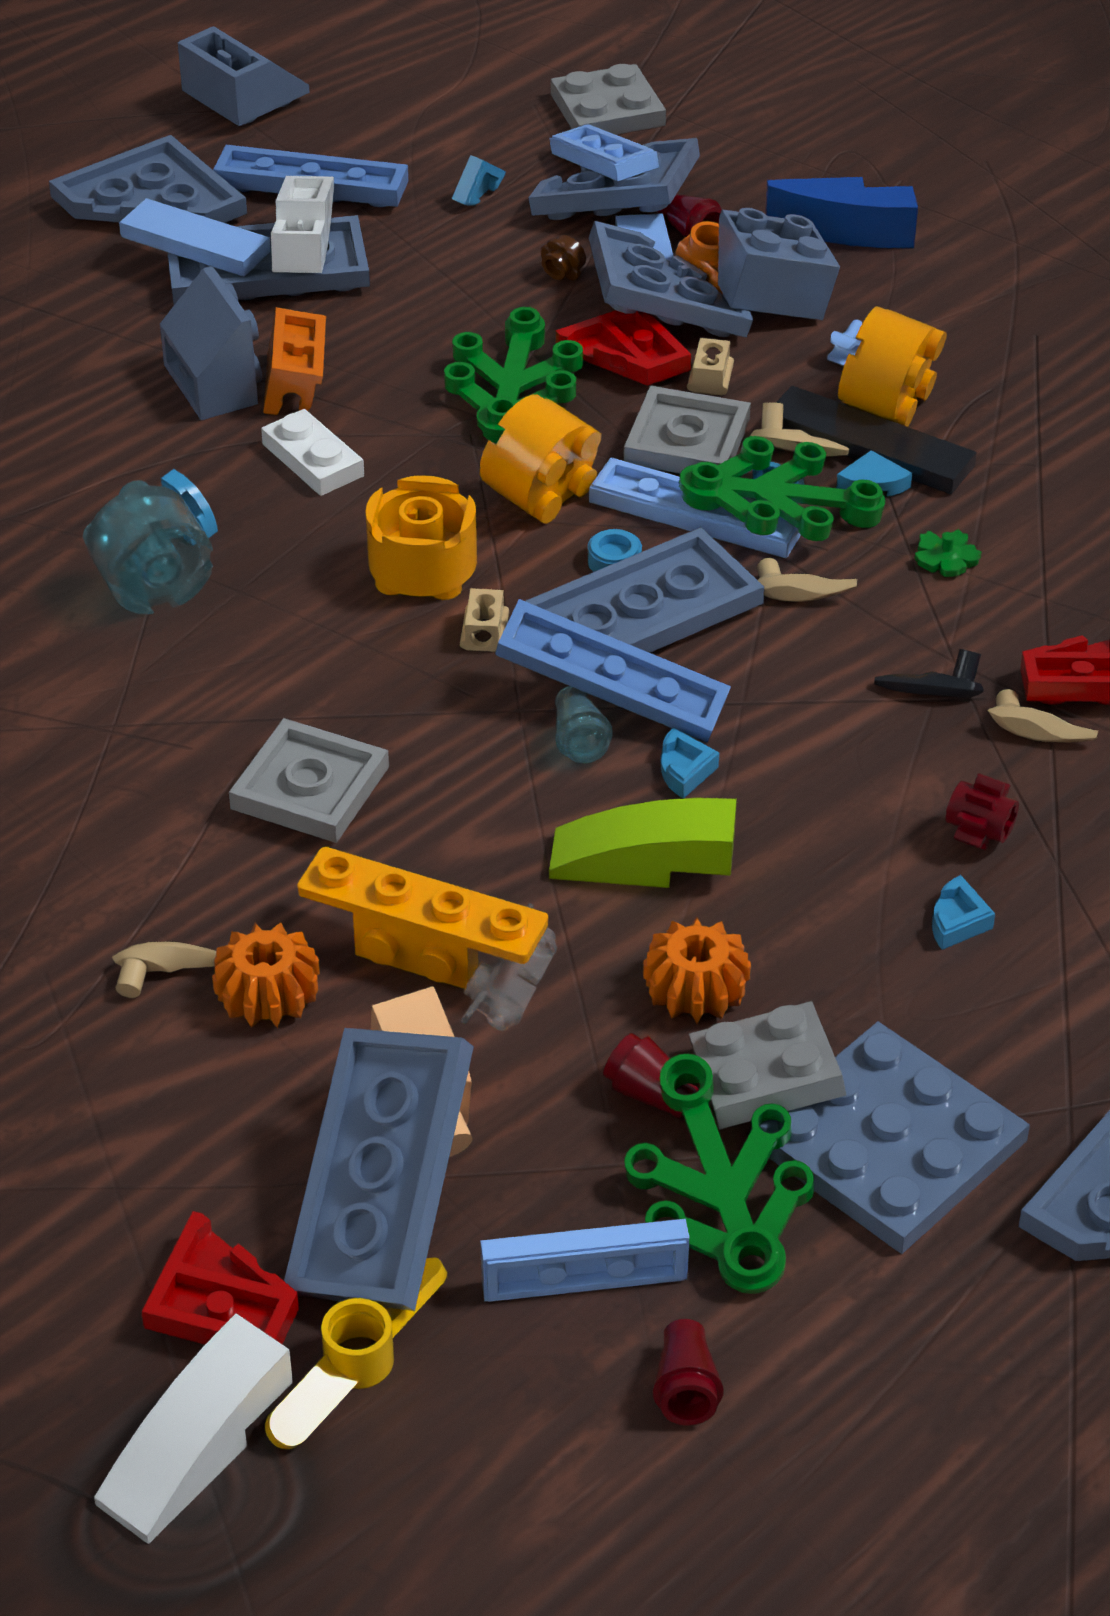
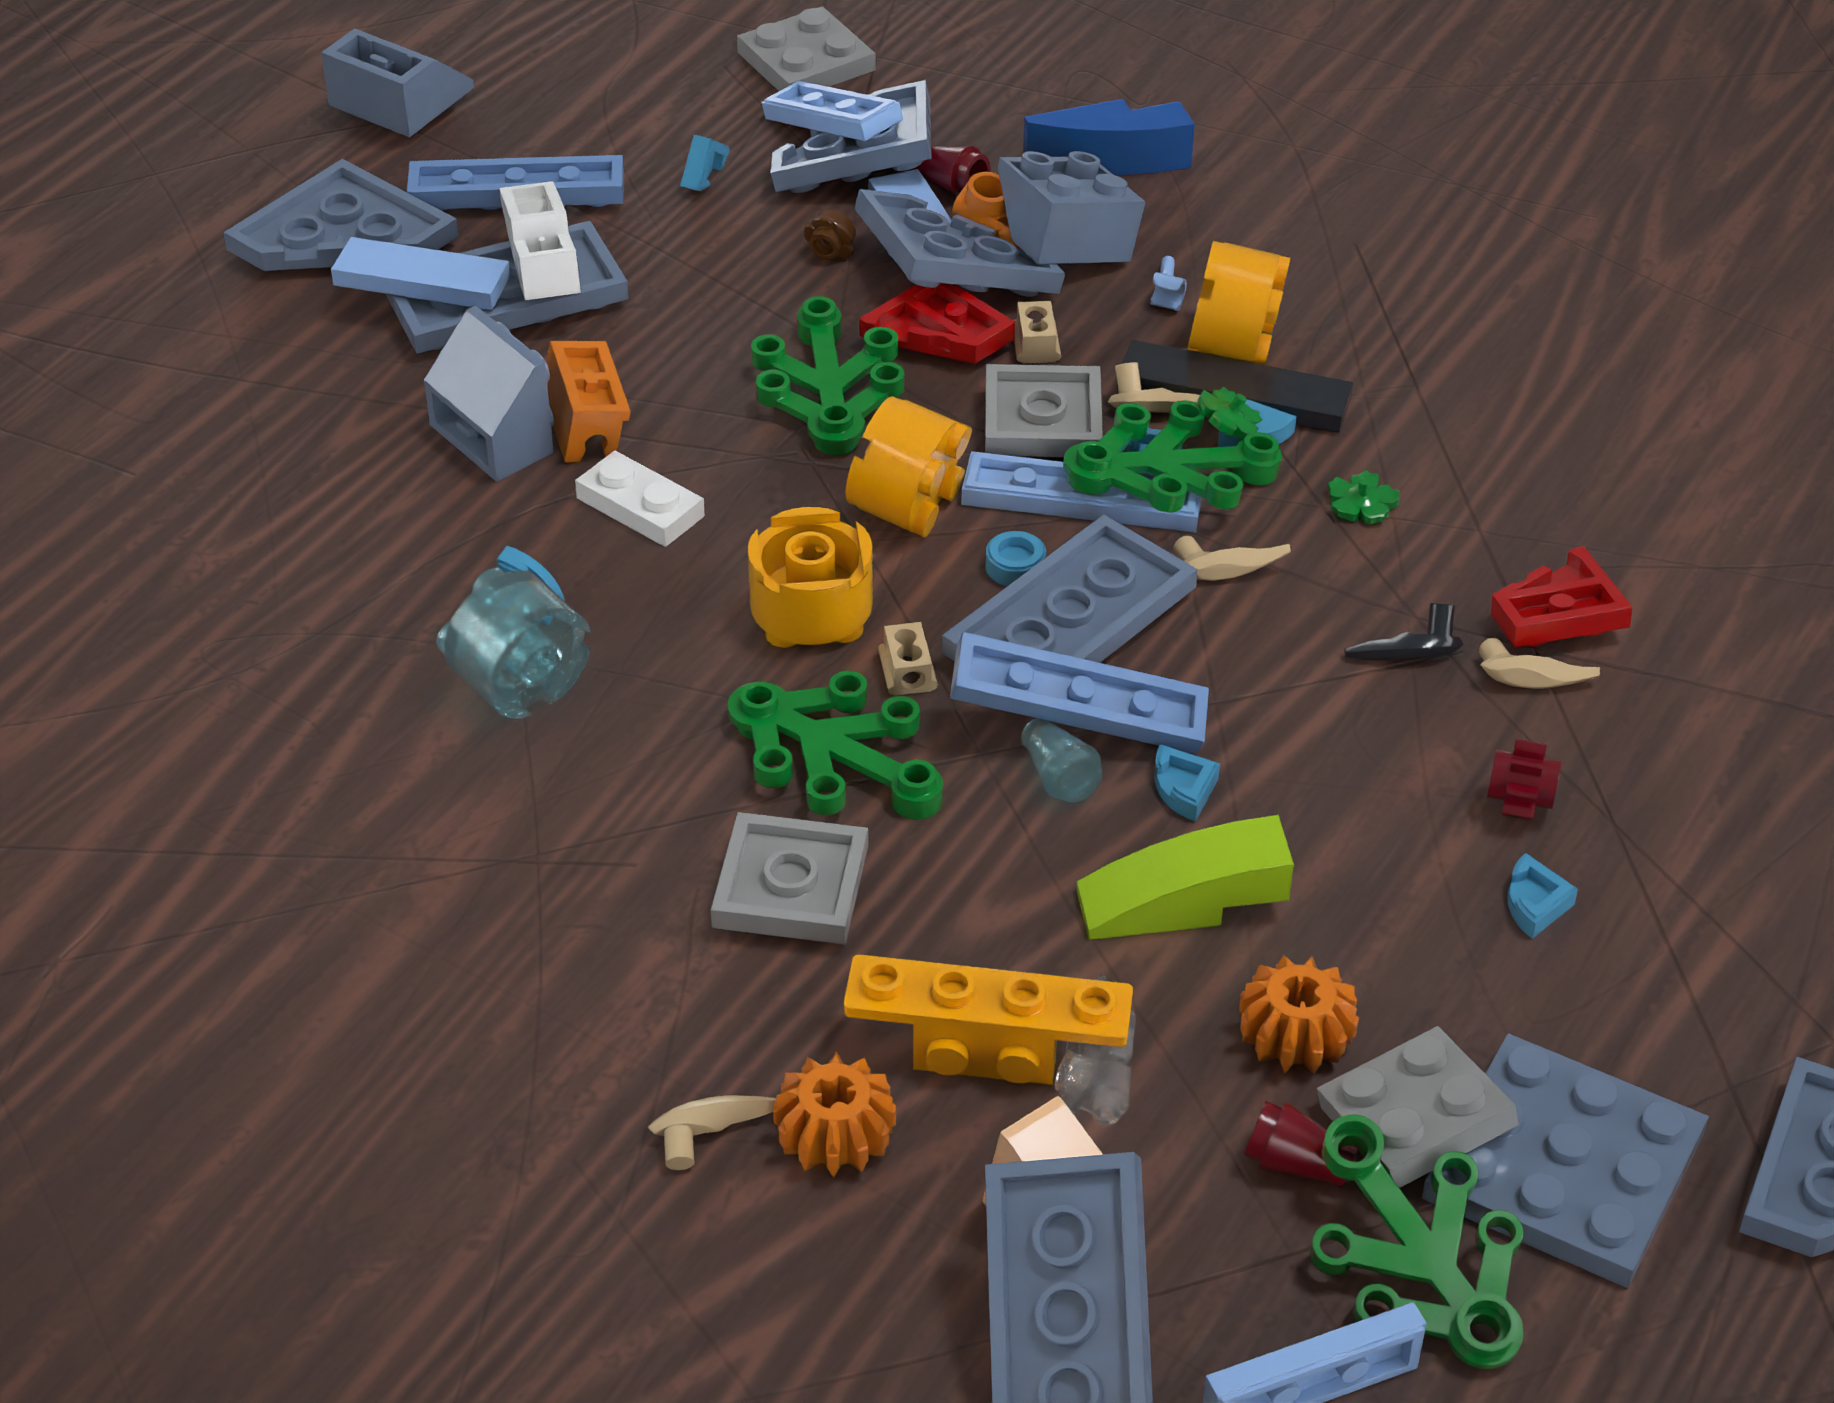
camera: 15 degrees left, 0 degrees up
(348, 642) = (766, 709): none -> green plant
(846, 459) = (1229, 412): none -> green plant

